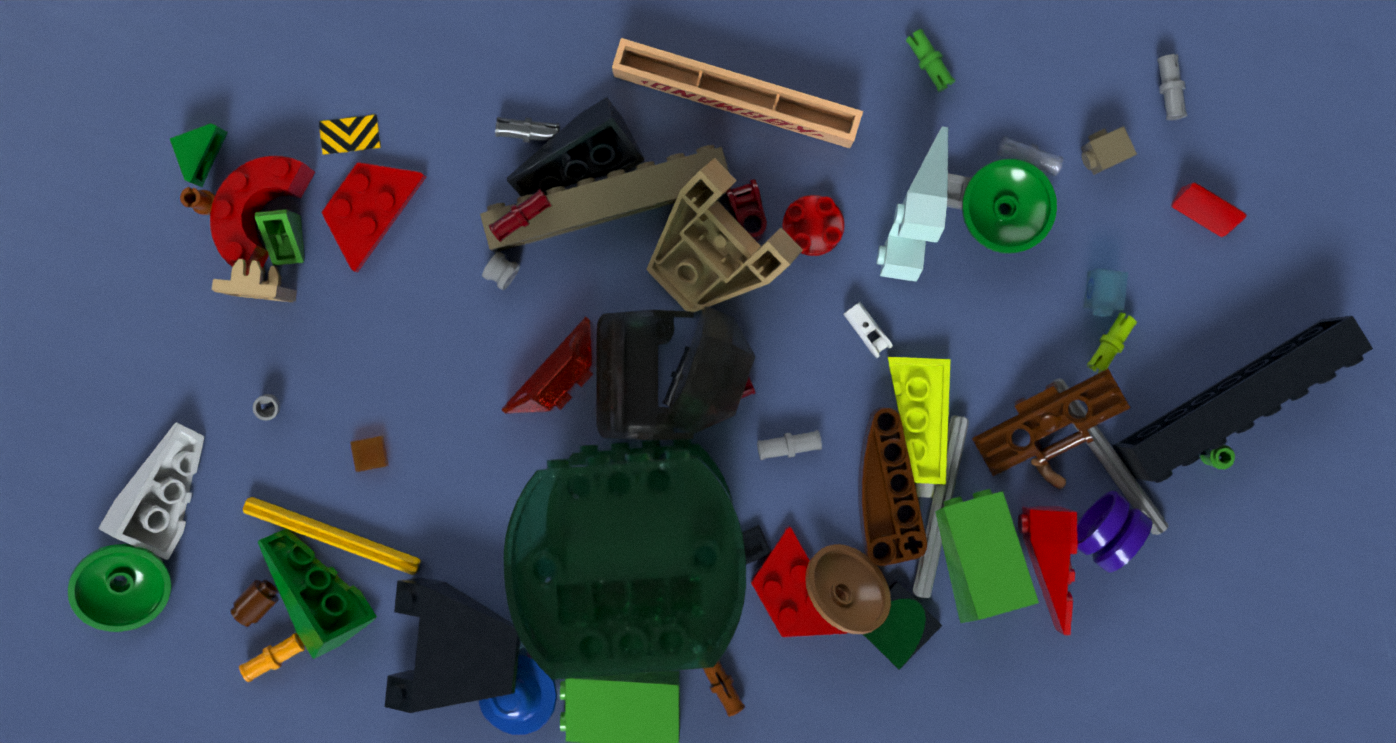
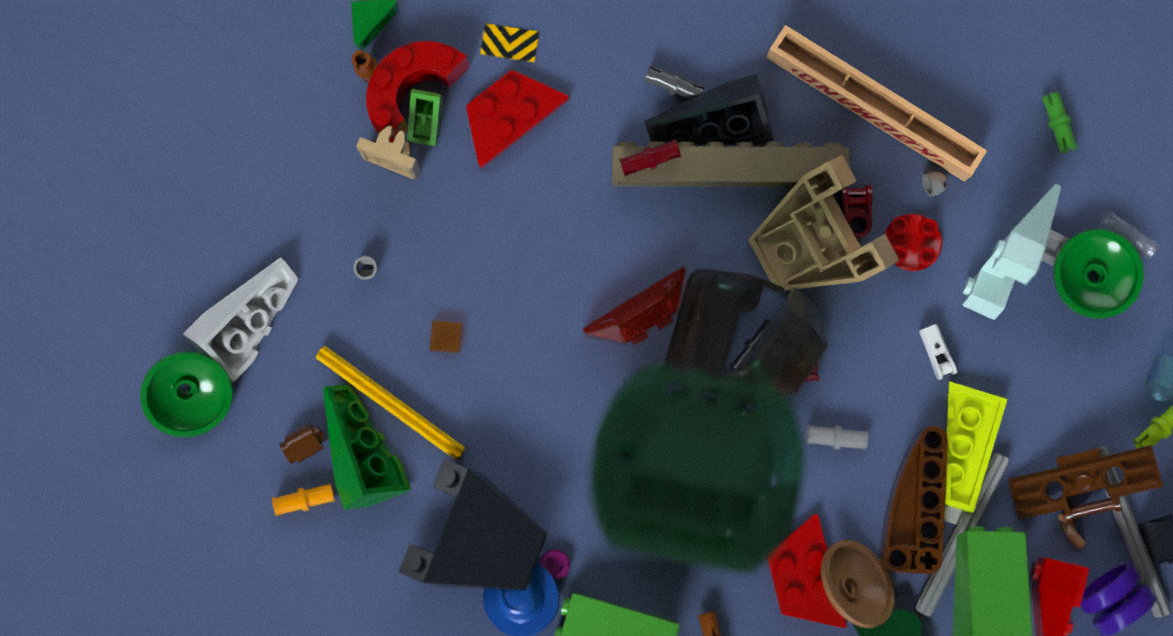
camera: 10 degrees right, 5 degrees down
(501, 270) = (615, 203): light grey wheel -> none
(819, 158) = (934, 183): none -> light grey hinge

